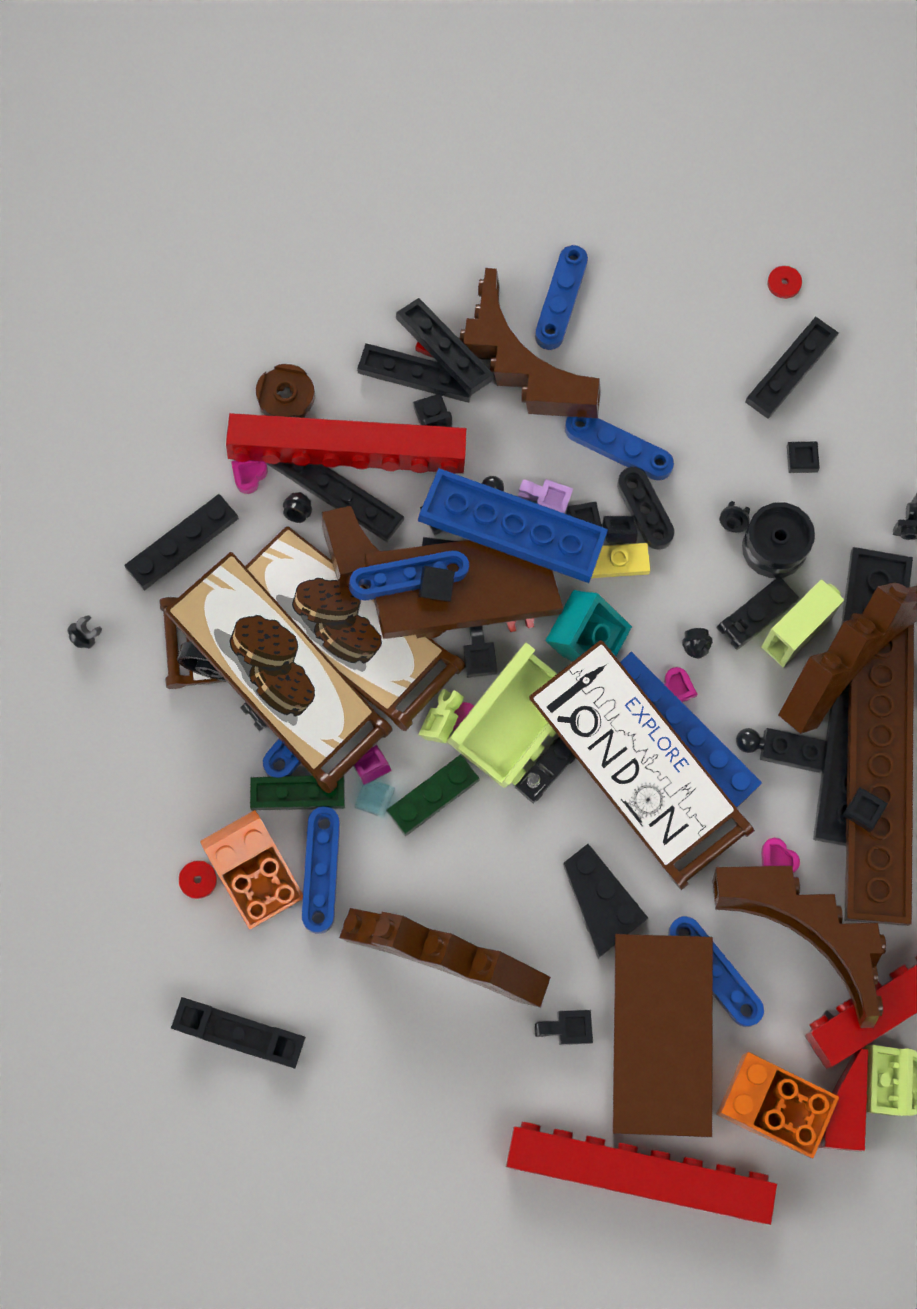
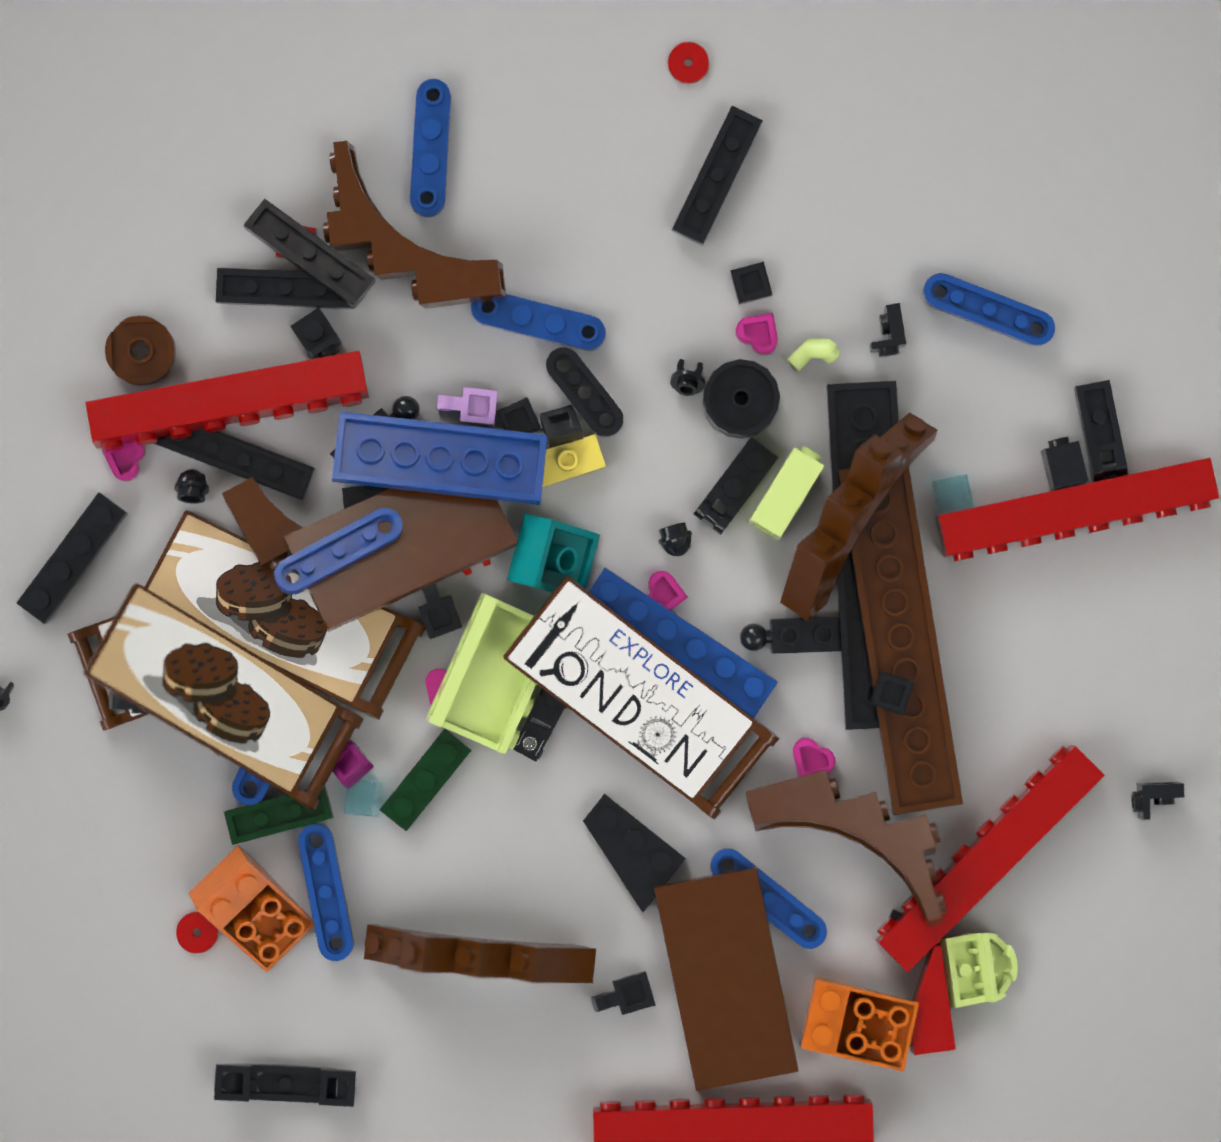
camera: 10 degrees left, 15 degrees up
(436, 584) = (371, 557): black tile -> none
(441, 720) = (413, 697): yellowish green plate -> none
(801, 495) = (759, 333): none -> dark pink tile
(845, 518) = (814, 348): none -> yellowish green arm

